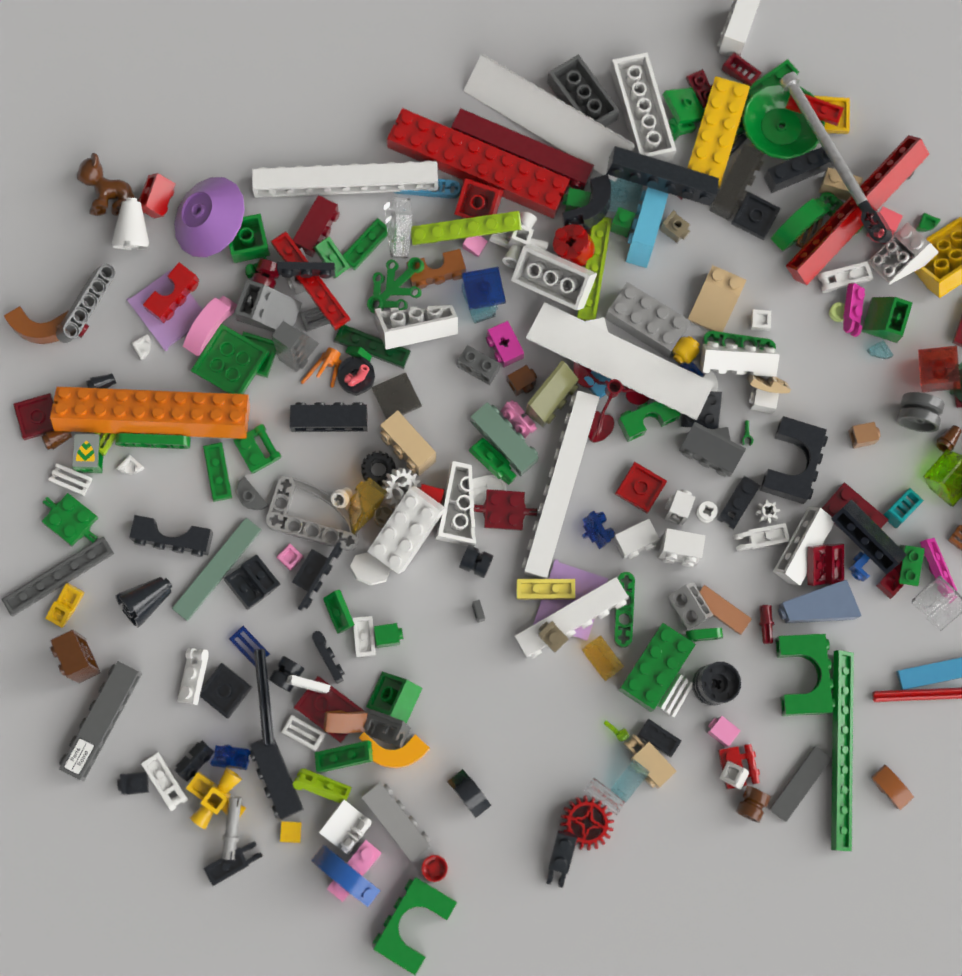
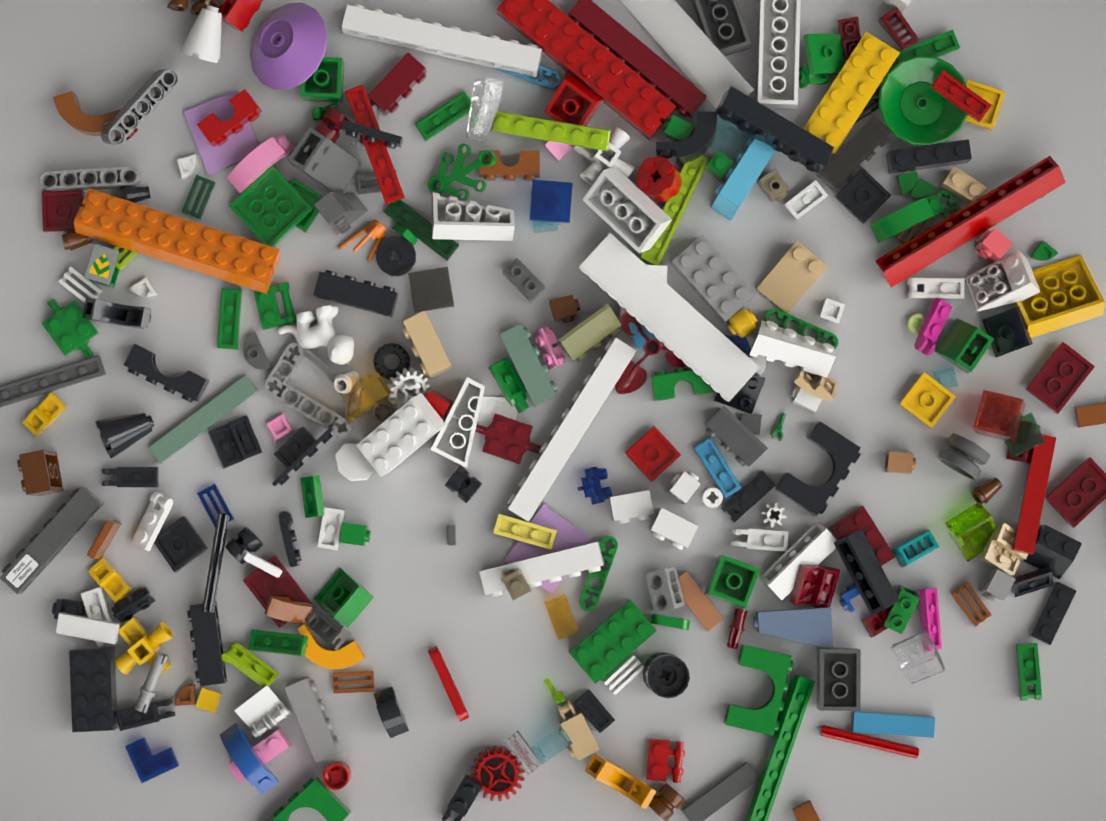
camera: 20 degrees right, 10 degrees up
(46, 379) = (81, 175): none -> light grey beam
(111, 494) = (116, 313): none -> black arch
(151, 385) = (206, 198): none -> clear green tile
(151, 704) = (103, 539): none -> dark orange tile
(152, 441) = (172, 269): green beam -> none
(156, 794) = (87, 628): none -> white tile
(163, 640) = (133, 477): none -> black hinge
(166, 743) = (110, 580): none -> yellow slope
(176, 852) = (93, 689): none -> black brick
(231, 757) = (168, 613): clear blue hips -> none
(248, 911) = (150, 765): none -> clear blue plate
(268, 834) = (186, 696): none -> dark orange tile
(318, 740) = (234, 595): white tile -> none
(327, 466) = (339, 347): none -> white animal
(329, 253) = (404, 122): green plate -> none
(359, 377) = (397, 261): coral arm -> none
(424, 767) = (353, 682): none -> dark orange tile
(505, 334) = (558, 253): dark pink brick -> none
(515, 750) = (448, 683): none -> red beam
(702, 484) = (717, 467): none -> dark azure tile
(705, 795) = (620, 780): none -> light orange arch
(707, 232) = (805, 200): none -> white plate
(723, 731) = (659, 722): bright pink brick -> none
(734, 775) = (656, 769): white slope -> none
(749, 581) = (732, 581): none -> green brick
(789, 195) = (907, 182): none -> green tile
(790, 82) = (942, 63): flat silver piece -> none
(804, 196) = (922, 189): none -> green tile
(870, 374) = (927, 400): none -> yellow plate
(875, 643) = (839, 679): none -> dark grey brick
(923, 293) = (1008, 331): none -> black plate

